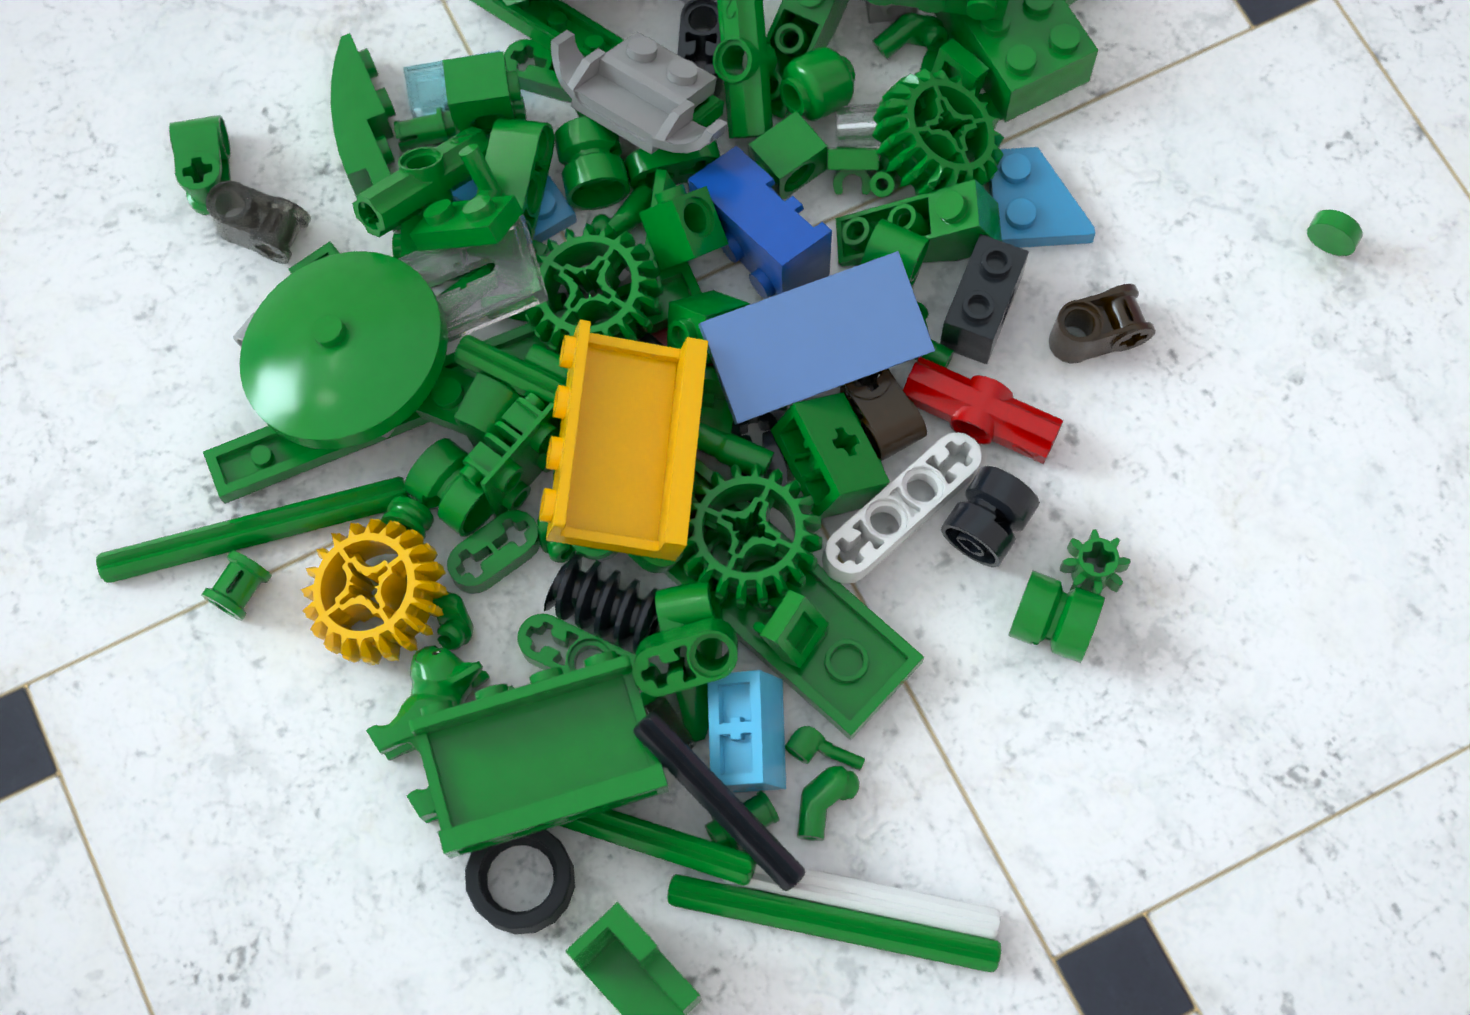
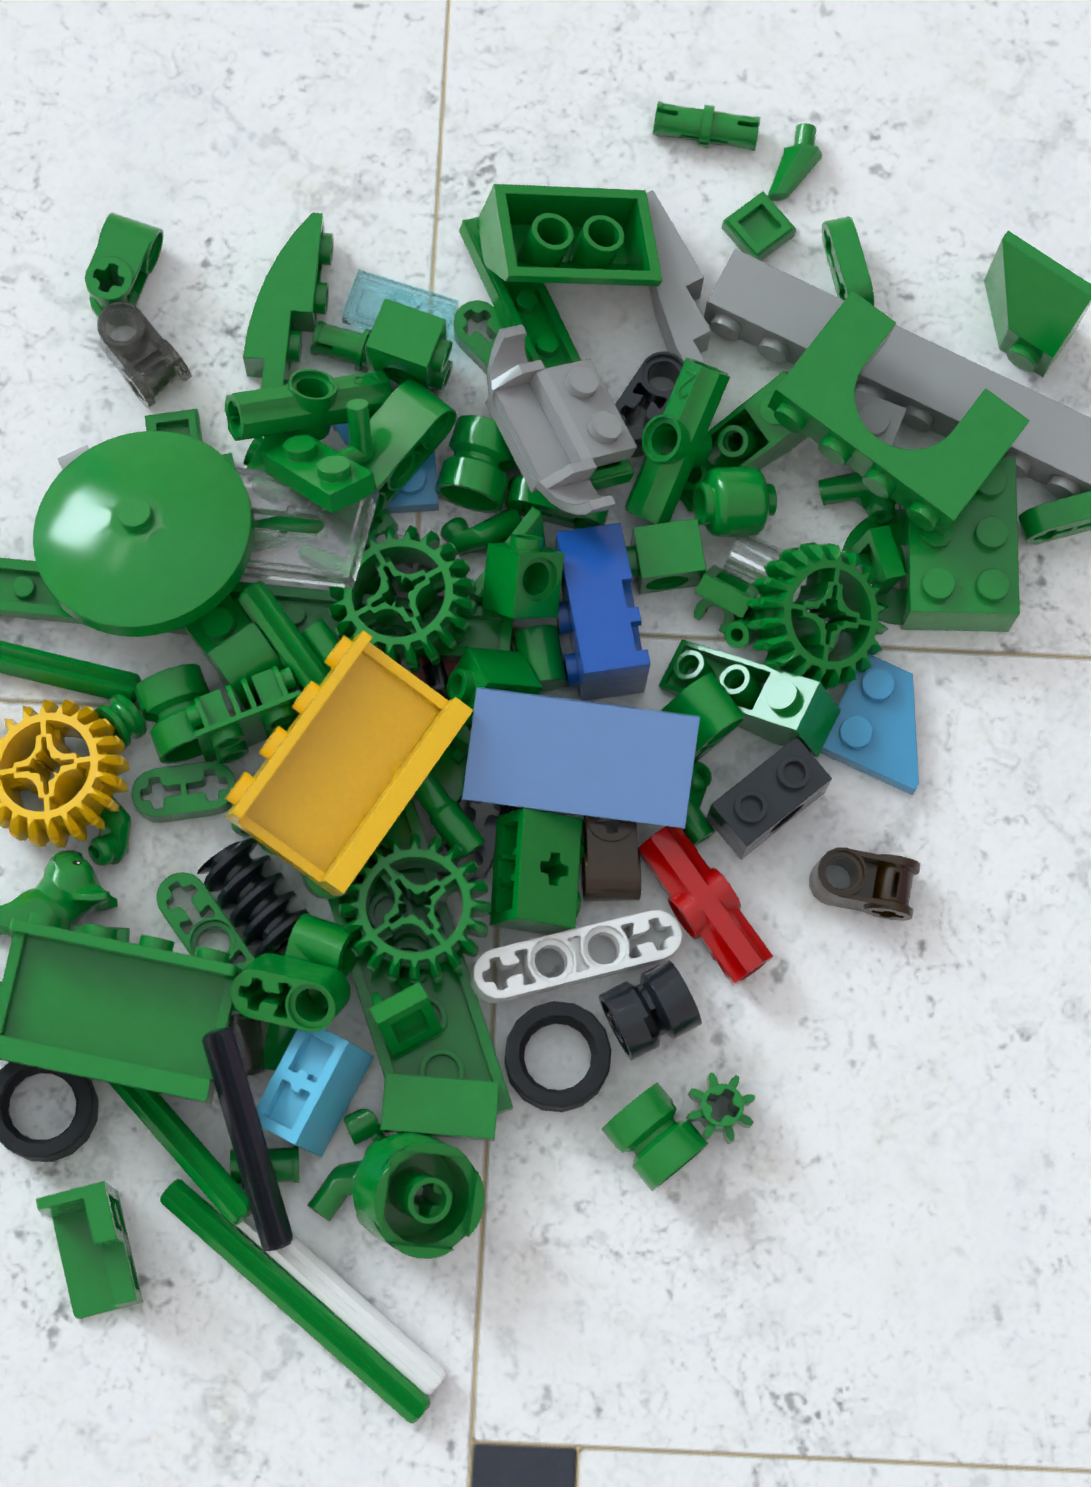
camera: 20 degrees right, 5 degrees up
(728, 278) = (543, 653): none -> green piece
(864, 688) = (439, 1106): none -> green tile
(890, 769) = (411, 1223): none -> green brick
(947, 558) = (563, 1014): none -> black tyre

